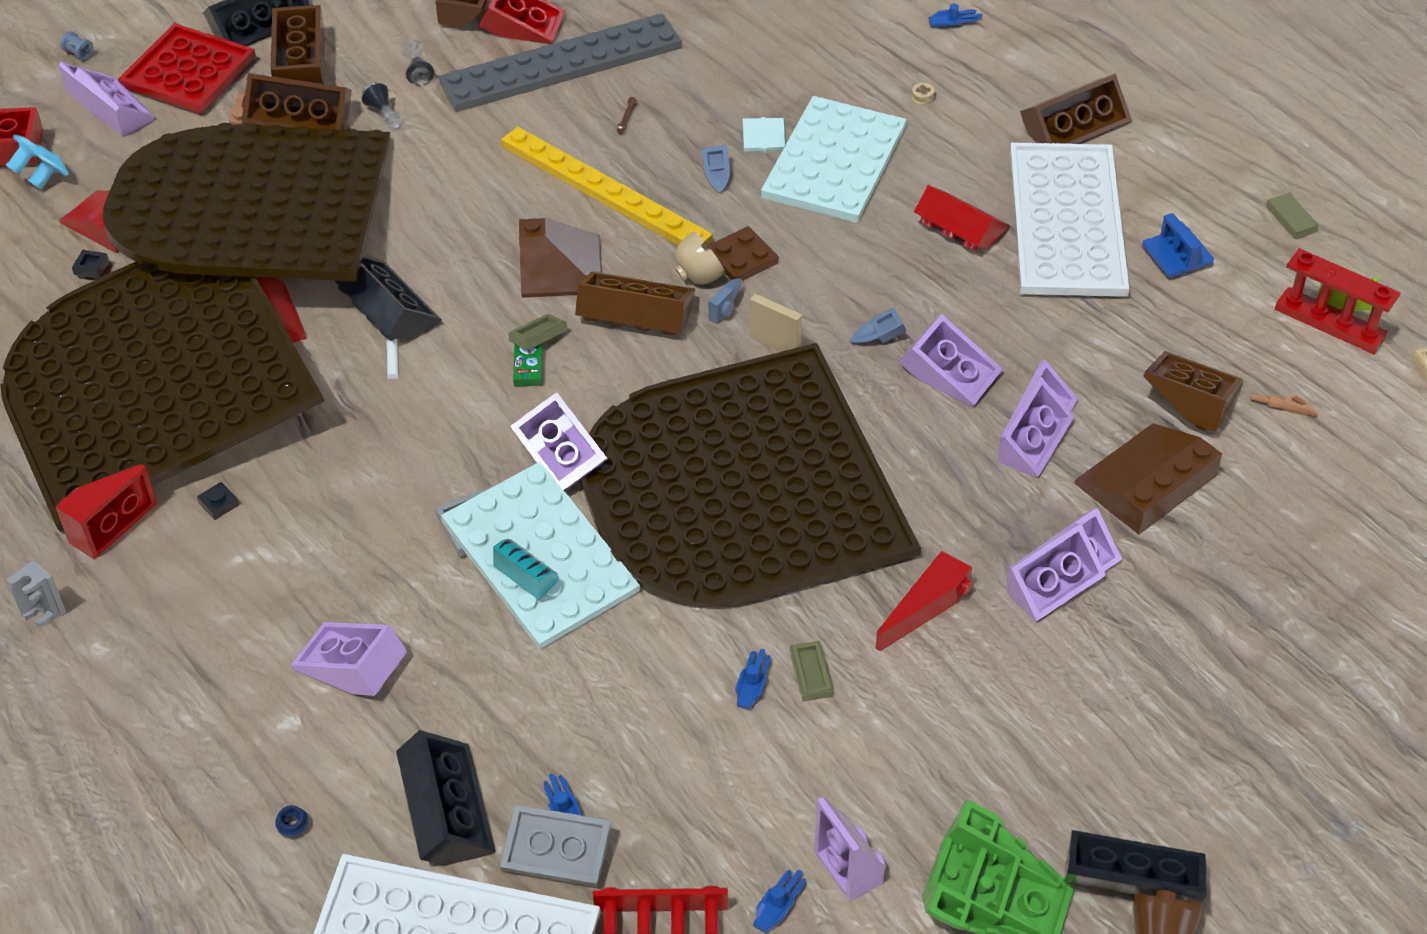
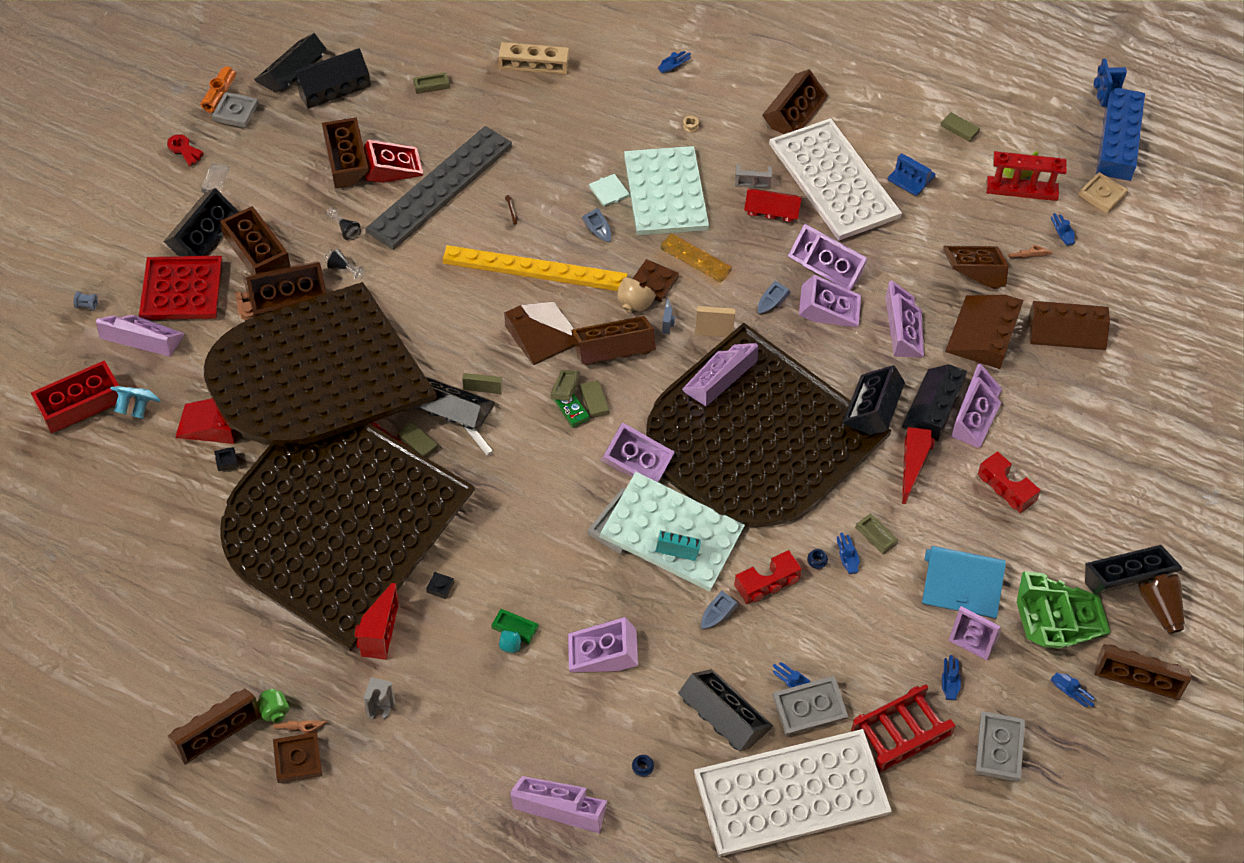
camera: 30 degrees left, 5 degrees up
(155, 816) = (559, 803): none -> lavender slope
(243, 598) = (509, 641): none -> teal piece
(268, 585) = (511, 622): none -> green tile
(318, 328) = (417, 439): none -> olive tile
(440, 292) = (482, 383): none -> olive tile
(529, 674) = (718, 609): none -> sand blue plate
(564, 362) = (594, 399): none -> olive tile
(644, 666) = (755, 586): none -> red arch
(709, 661) = (817, 554): none -> dark blue plate
(740, 390) = (721, 372): none -> lavender slope
(816, 248) = (696, 257): none -> clear yellow plate
(888, 774) = (963, 580): none -> dark azure door
(921, 501) = (875, 400): none -> black slope
(957, 182) = (753, 179): none -> light grey hinge
(987, 308) = (828, 257): none -> lavender slope
(1011, 537) = (935, 399): none -> black slope
(1046, 702) = (1018, 494): none -> red arch
(1275, 514) = (1069, 325): none -> reddish brown slope
(1356, 395) = (1063, 229): none -> blue piece

